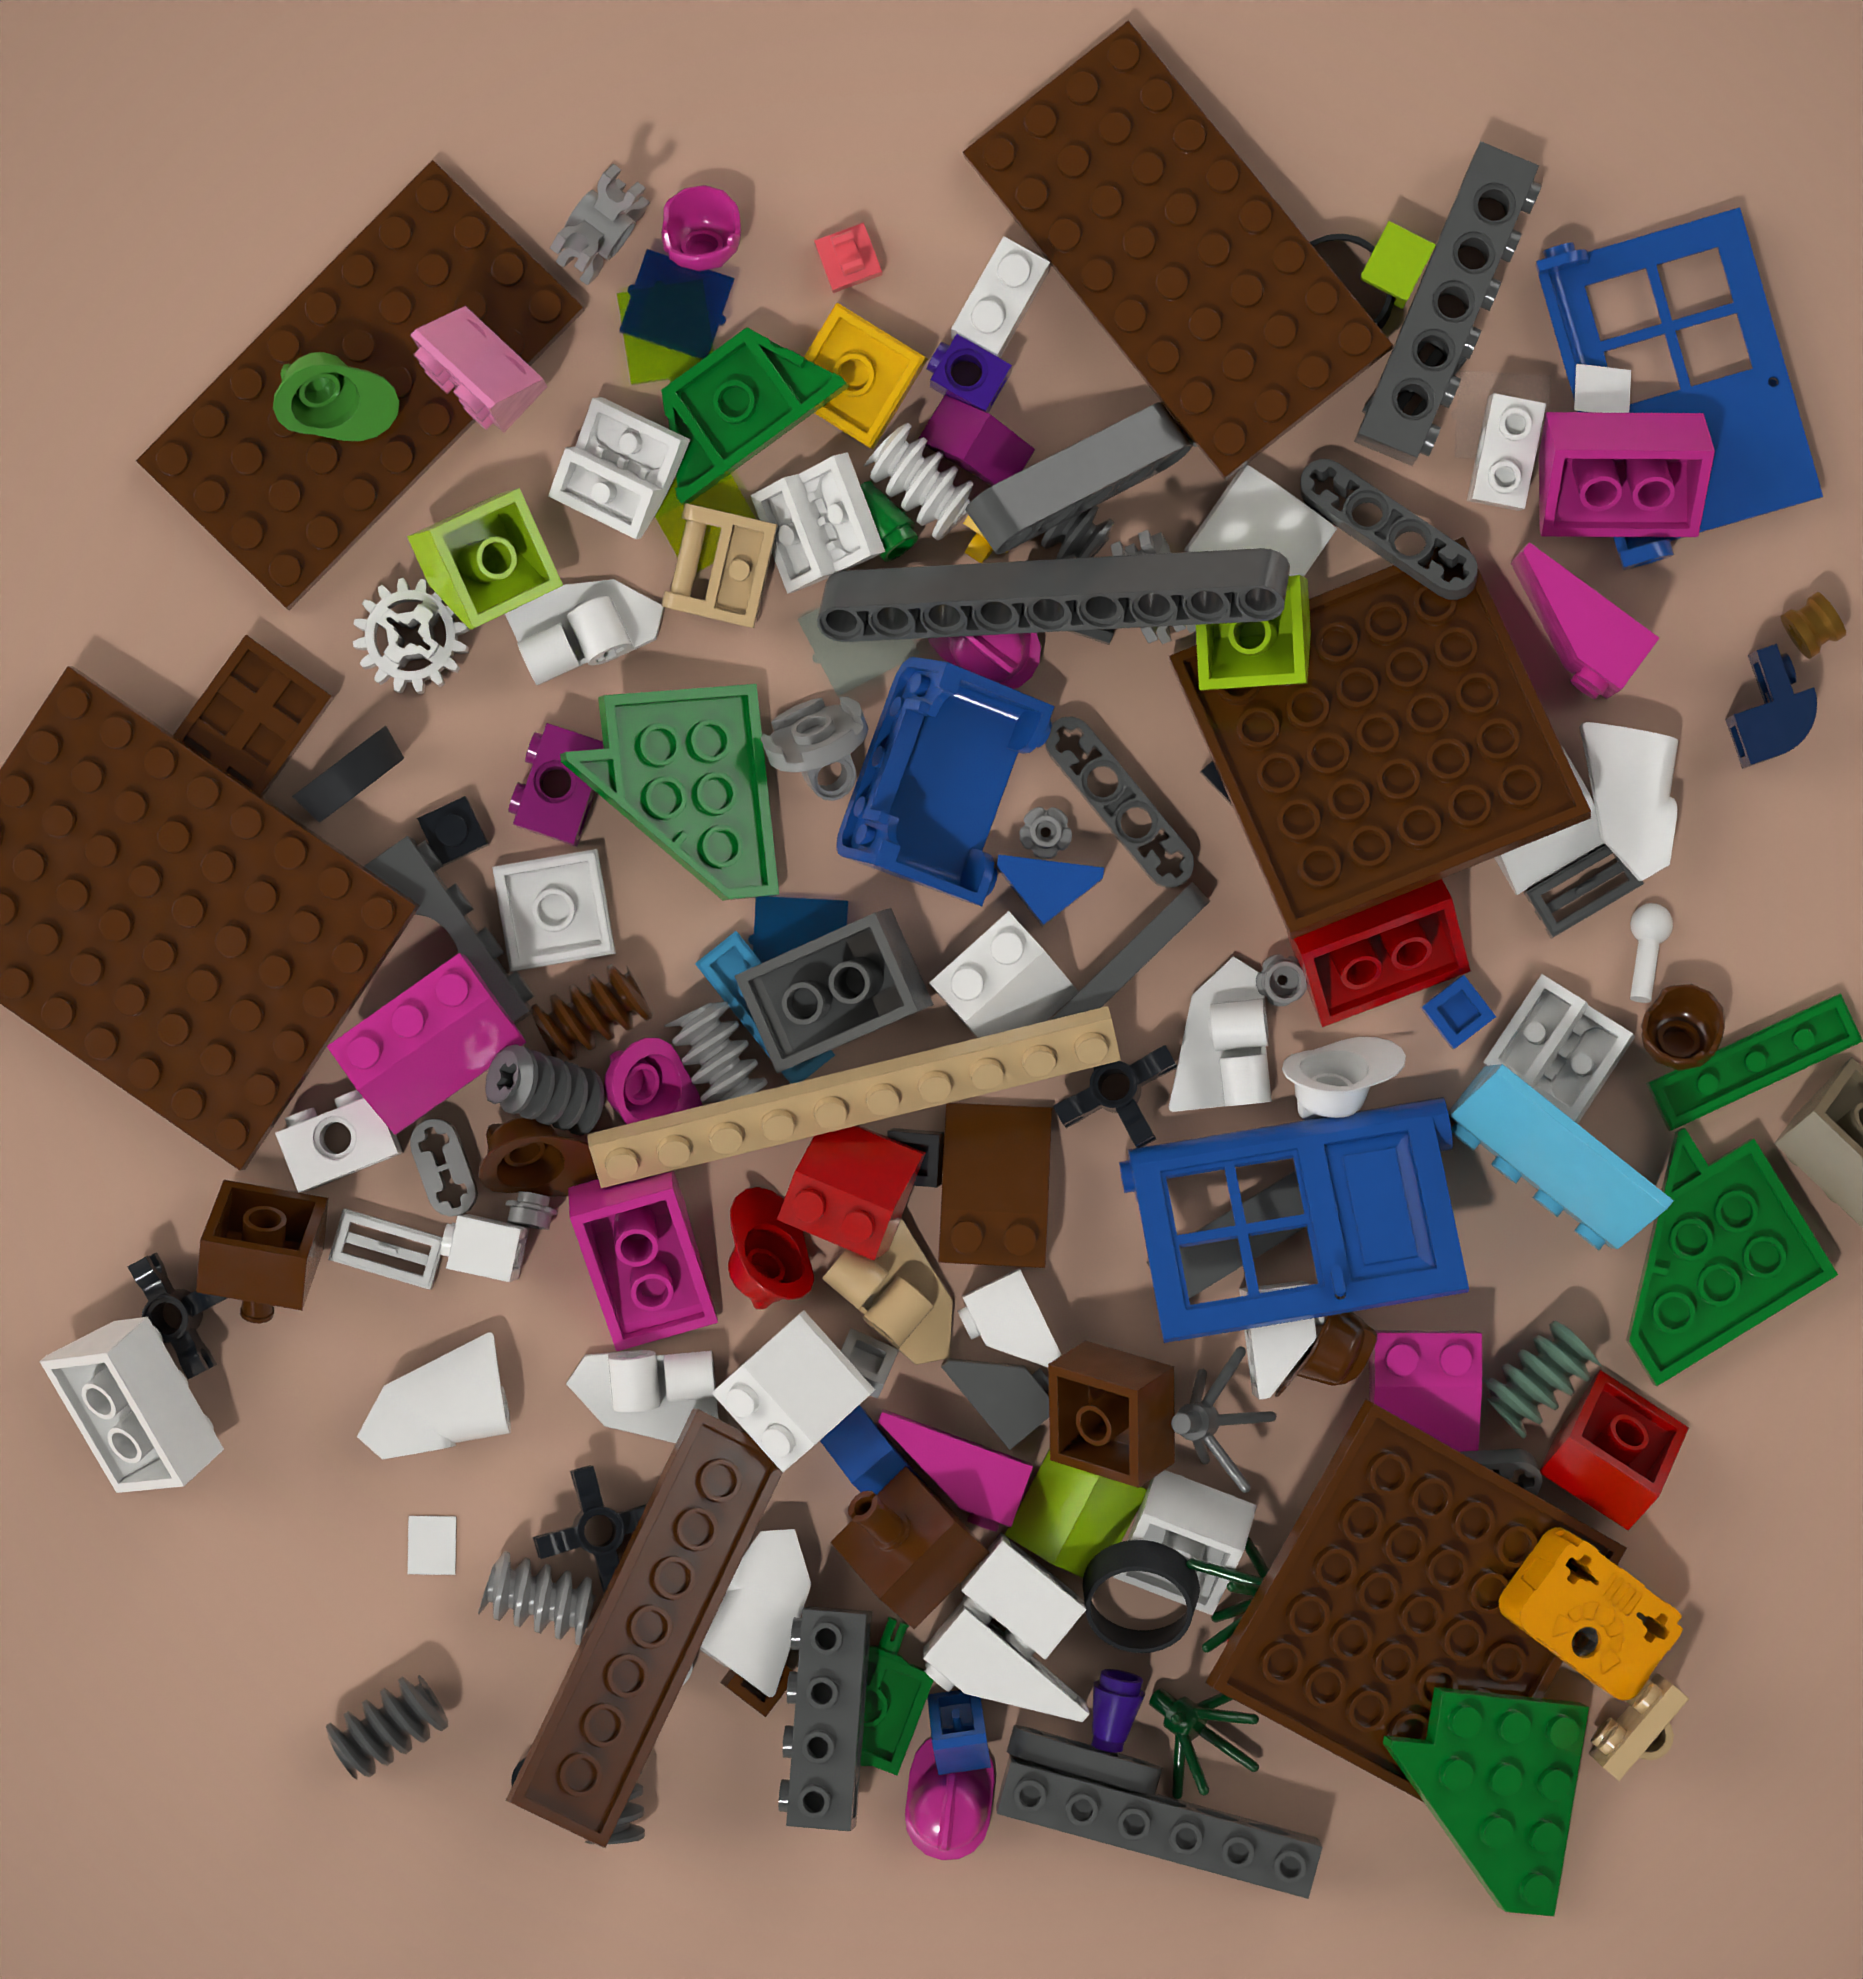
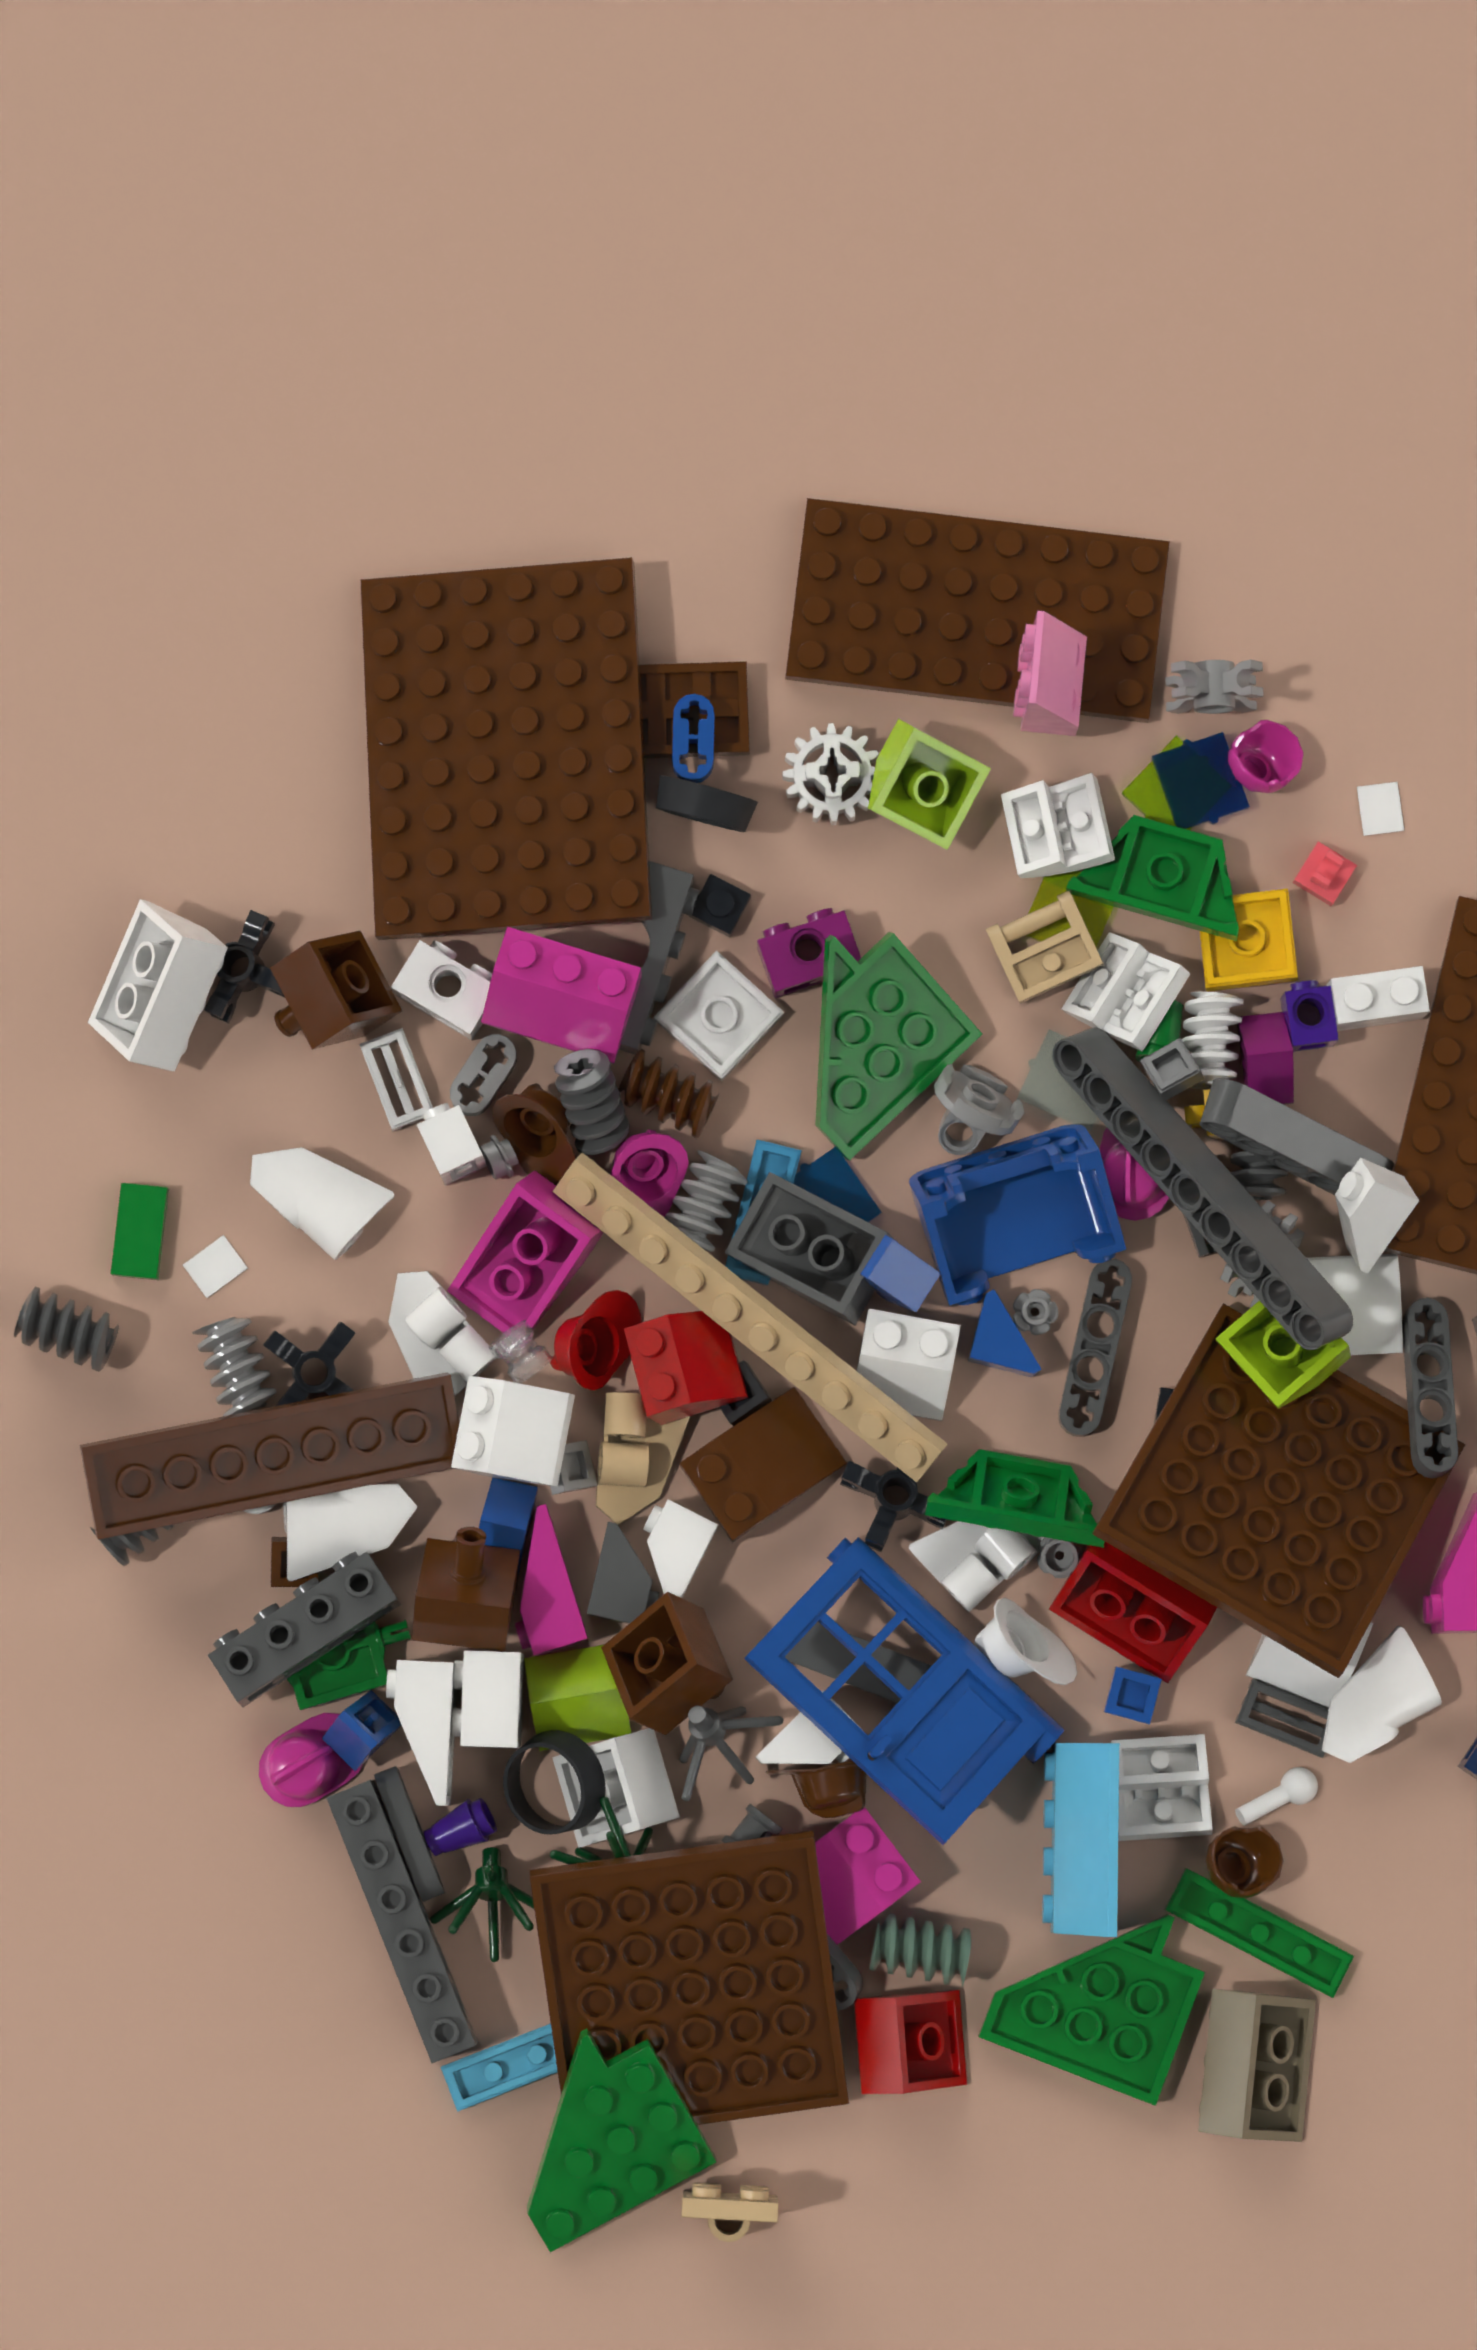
camera: 50 degrees right, 5 degrees down
(273, 749) = (682, 738): none -> blue beam
(334, 400) = (953, 598): bright green piece -> none
(347, 1590) = (139, 1231): none -> green tile
(583, 626) = (929, 885): white panel -> none
(725, 1328) = (520, 1352): none -> clear wheel
(827, 160) = (1380, 808): none -> white sticker
(921, 930) = (899, 1275): none -> slope
(923, 538) = (1172, 1069): none -> dark grey tile
(1137, 952) = (1003, 1439): dark grey beam -> none
(1191, 456) = (1372, 1210): none -> white slope
(1203, 979) = (1018, 1497): none -> green wing
(1317, 1446) = (753, 1826): none -> dark grey bush
(1356, 1835) = (501, 2067): none -> medium azure tile
(1599, 1604) = (797, 2111): light orange axle -> none

